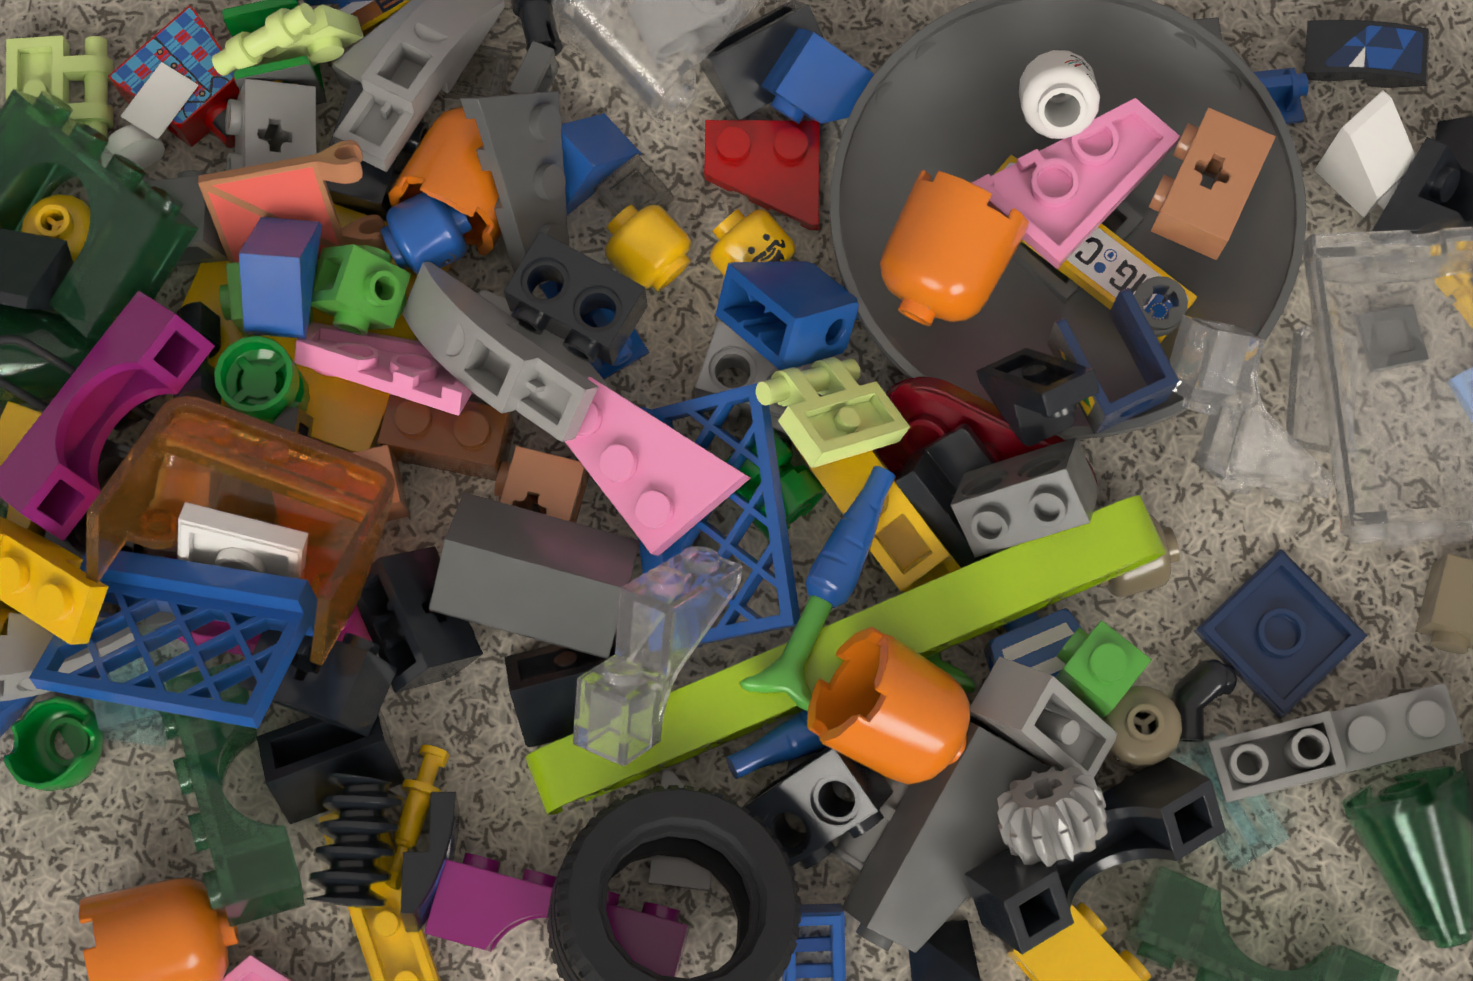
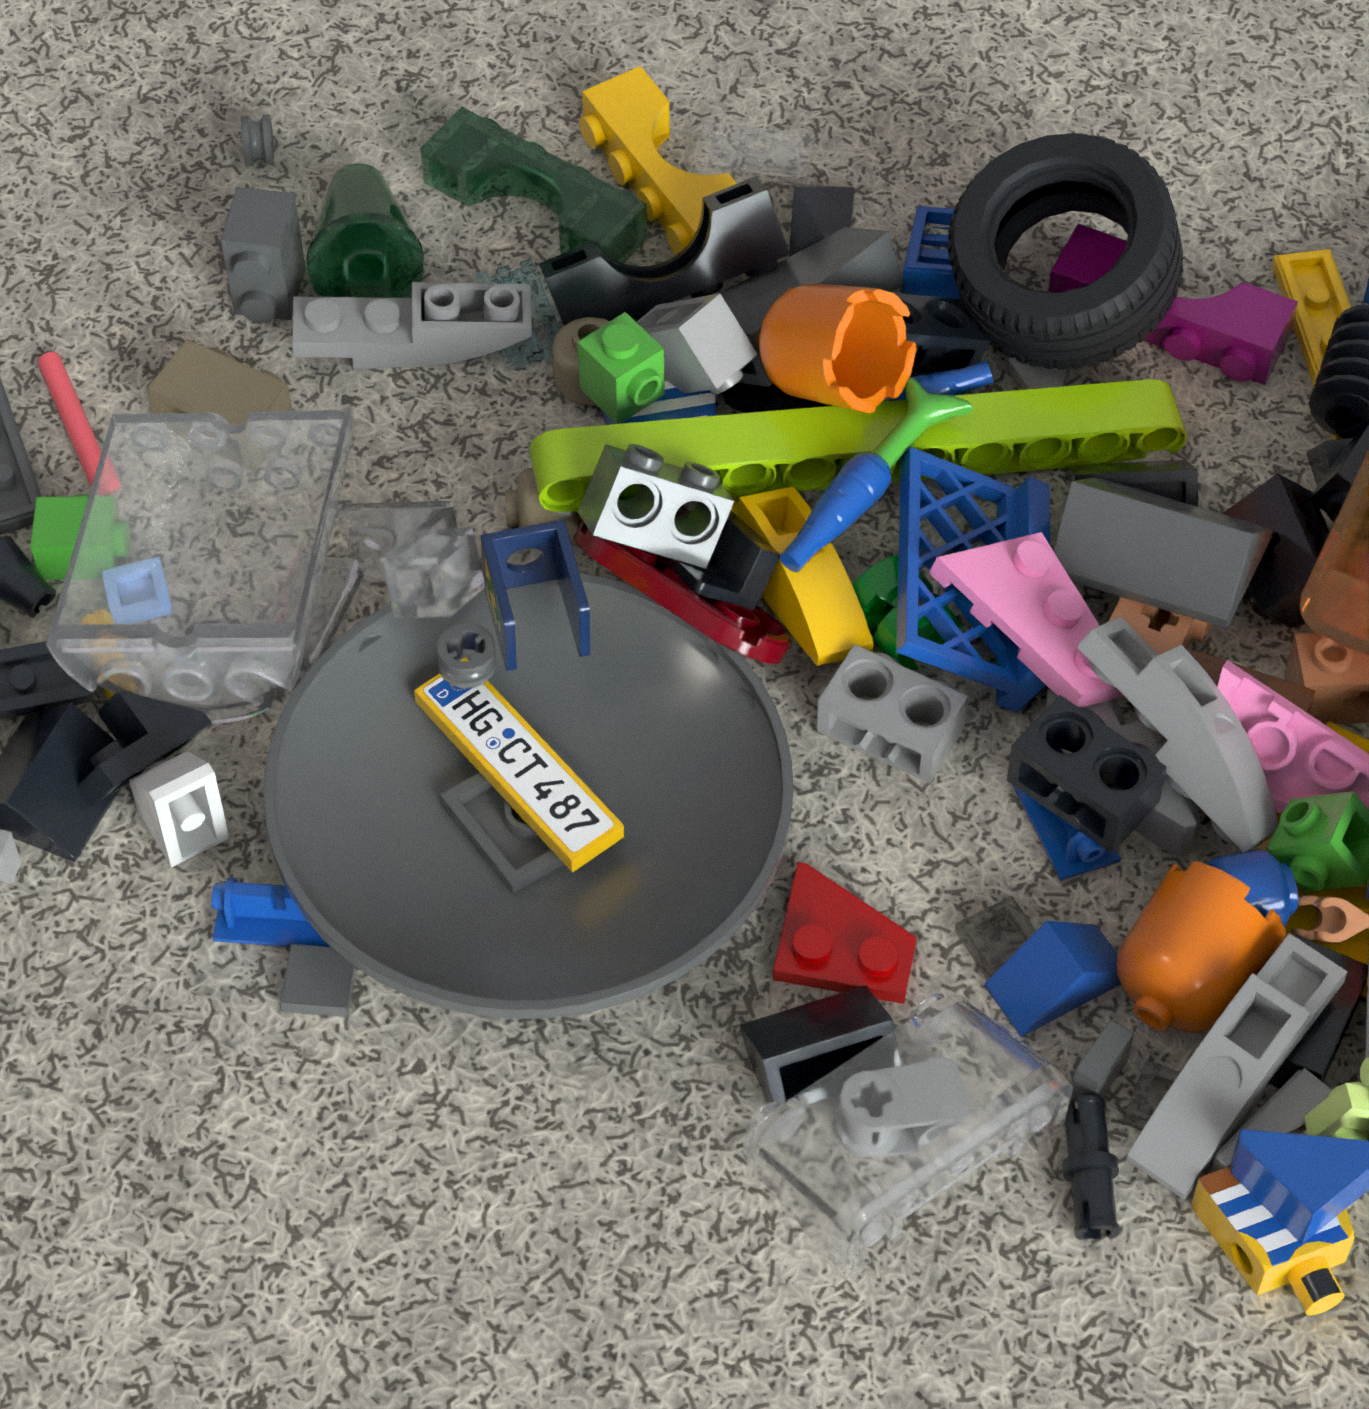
camera: 170 degrees left, 20 degrees down
(415, 807) = (1293, 429): yellow piece -> none
(423, 869) = (1289, 355): black slope -> none
(526, 161) = (1125, 920): dark grey wing -> none
(648, 246) = (995, 855): yellow head -> none
(657, 630) = (1047, 447): clear arch -> none
(750, 240) = (876, 836): yellow head -> none
(787, 311) = (854, 737): blue torso -> none
(815, 80) = (761, 985): blue slope -> none
(840, 422) = (822, 598): yellowish green plate -> none
(948, 249) = (674, 715): orange cylinder -> none
(1037, 392) = (619, 578): black slope -> none
(1052, 815) = (686, 251): light grey gear -> none
(1059, 94) = (514, 846): white head -> none
(1081, 178) = (515, 779): bright pink wing -> none
(1199, 689) = (520, 395): black arm -> none
(1231, 156) = (374, 743): nougat brick -> none
(1280, 633) = (426, 431): dark blue tile -> none
(1369, 50) = (128, 932): slope -> none

